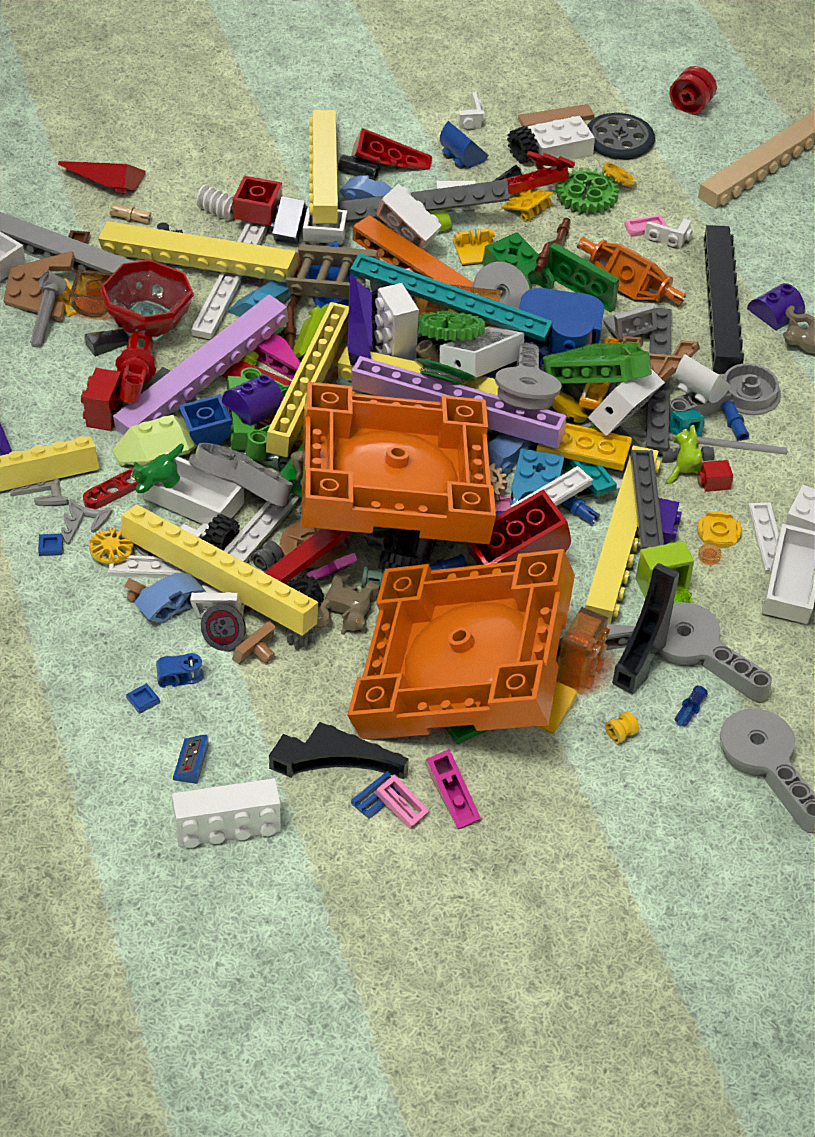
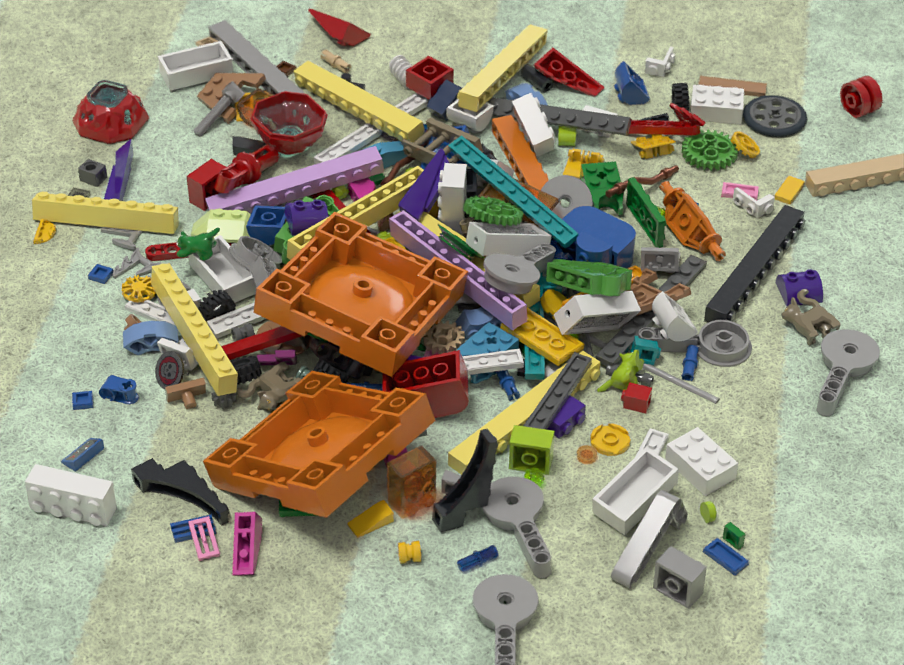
camera: 30 degrees right, 5 degrees down
(690, 208) = (789, 190): none -> yellow tile

